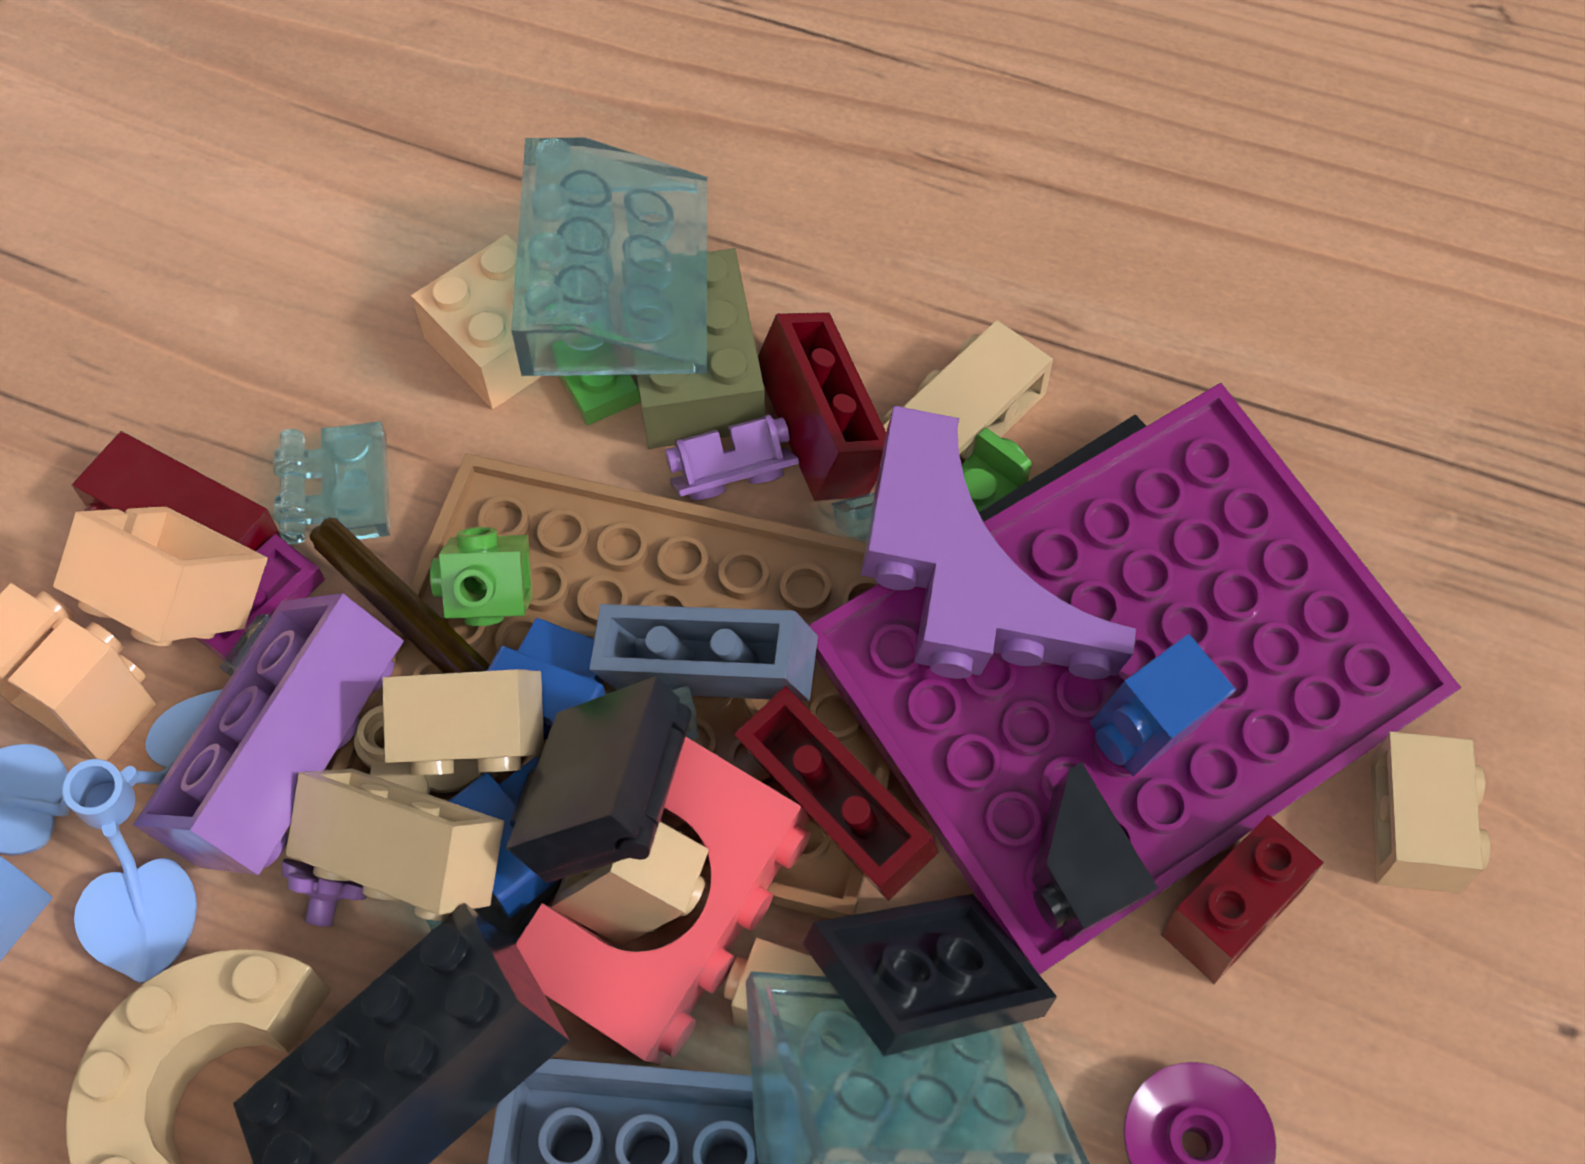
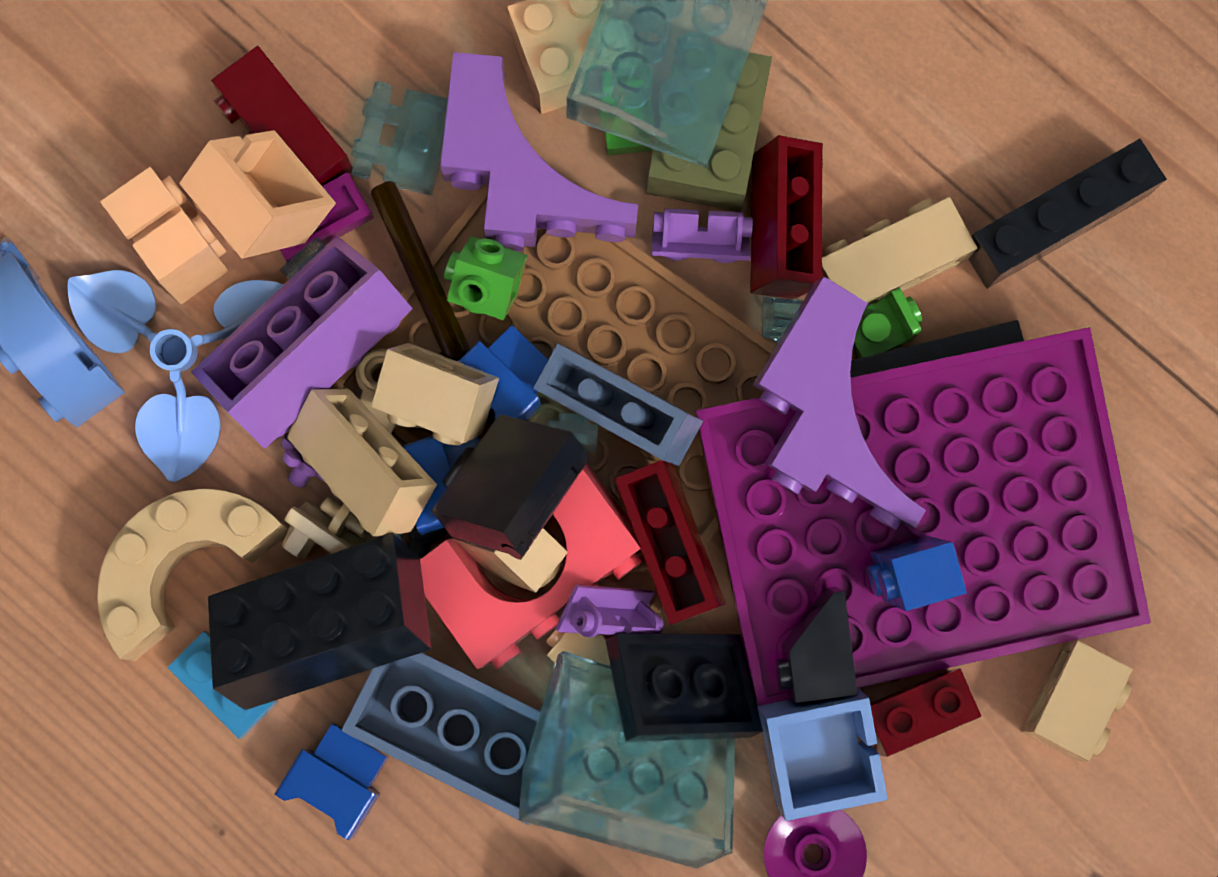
camera: 15 degrees right, 20 degrees up
(356, 966) = (329, 526): none -> tan hips
(501, 472) = (524, 192): none -> medium lavender arch
(780, 909) = (609, 611): none -> medium lavender hinge
(1129, 302) = (1065, 212): none -> black brick
(1138, 1002) = (817, 755): none -> medium blue piece

